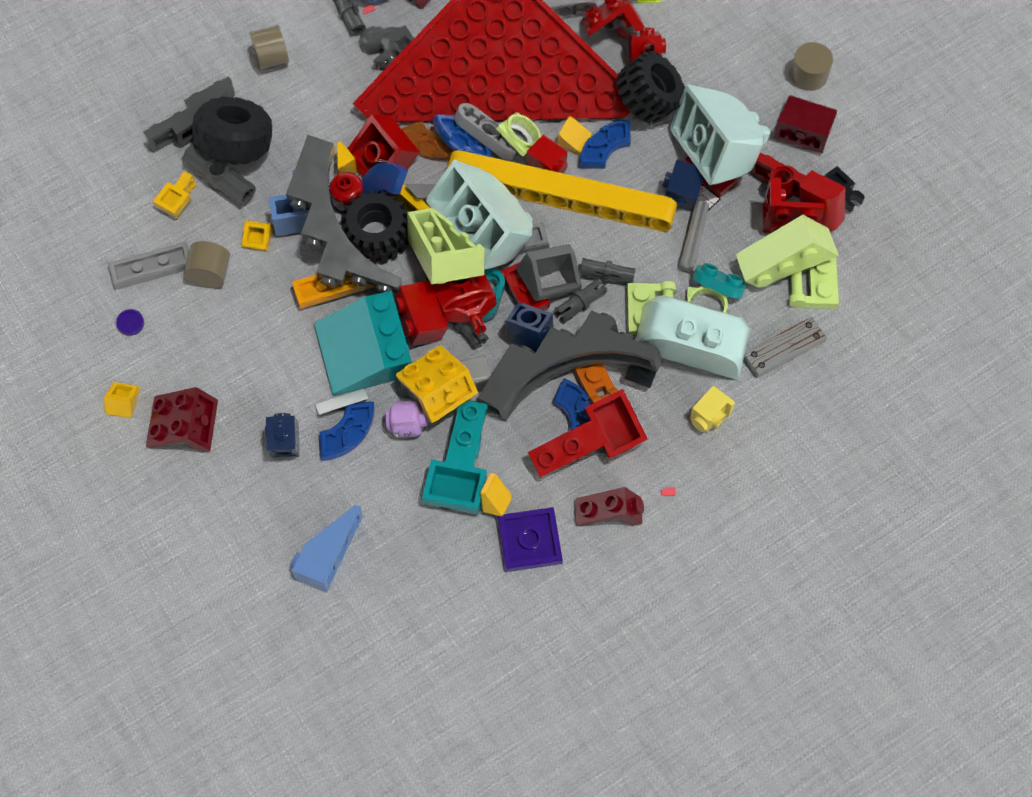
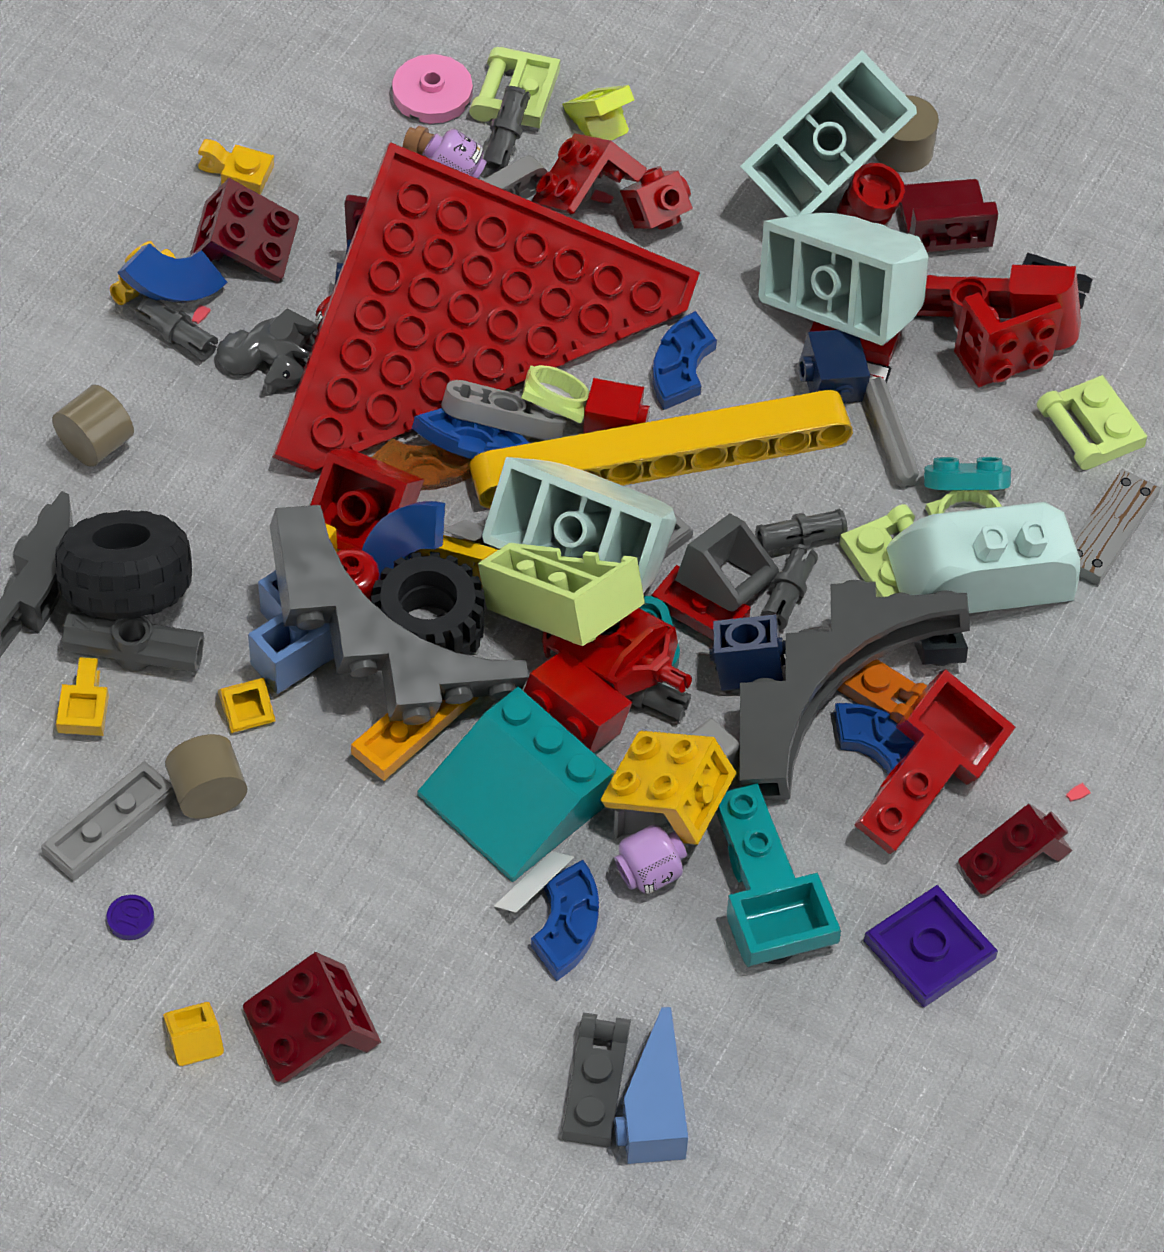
camera: 30 degrees left, 10 degrees down
(282, 435) = (487, 964): dark blue head -> none
(305, 525) = (596, 1081): none -> dark grey plate
(495, 496) = (849, 907): yellow slope -> none
(573, 136) = (631, 365): yellow slope -> none
(650, 87) = (708, 249): black tyre -> none
(711, 410) = (1070, 652): light yellow brick -> none
(752, 51) = (830, 137): none -> light aqua hips
(764, 96) = (873, 194): none -> red wheel
(786, 252) = (1039, 394): yellowish green wedge -> none

